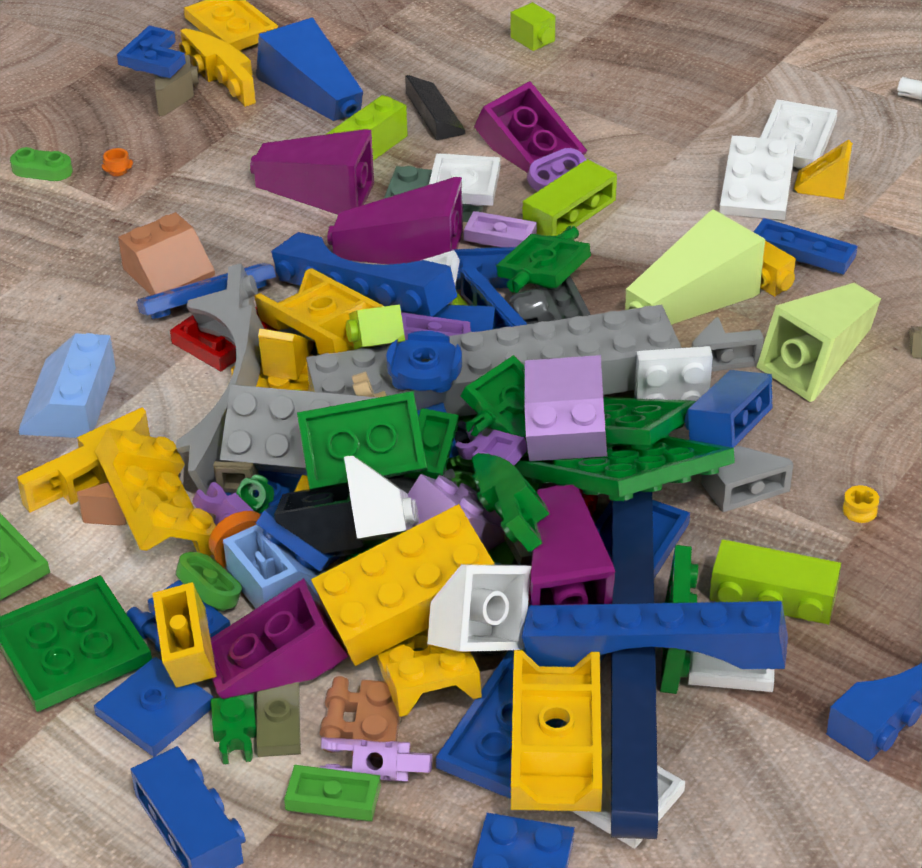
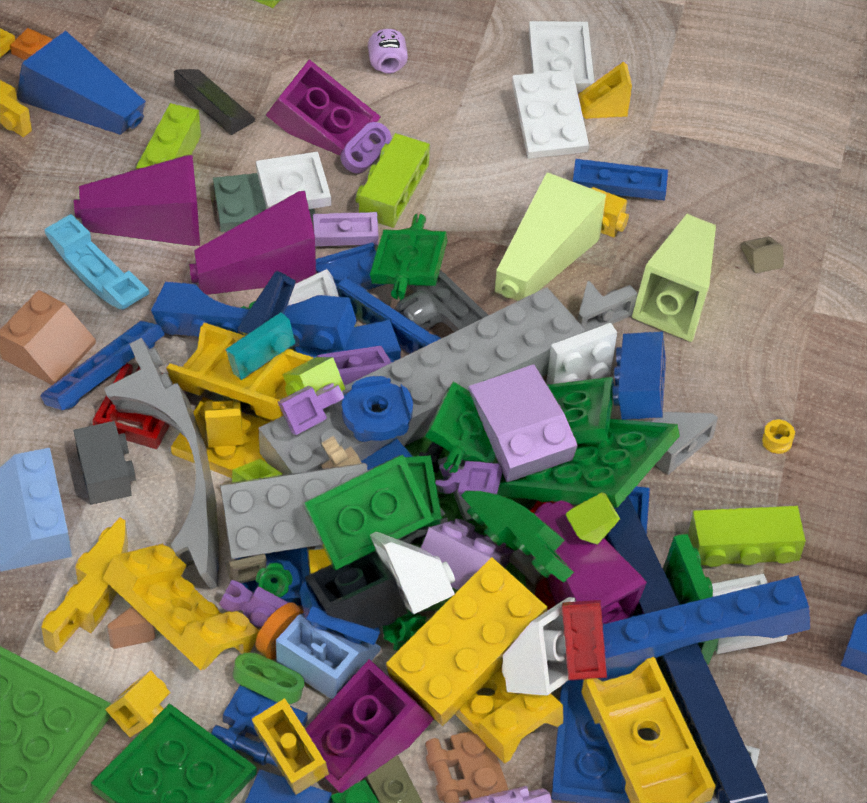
camera: 25 degrees left, 10 degrees up
(71, 563) = (139, 703): none -> yellow brick
(159, 365) = (103, 462): none -> dark grey brick
(244, 208) = (93, 266): none -> medium azure slope
(341, 286) = (260, 346): none -> teal plate
(348, 266) = (269, 303): none -> dark blue slope
(351, 343) = (306, 407): none -> medium lavender plate
(522, 607) = (584, 639): none -> red plate
(586, 500) = (593, 518): none -> lime slope
(622, 98) = (387, 50): none -> lavender head

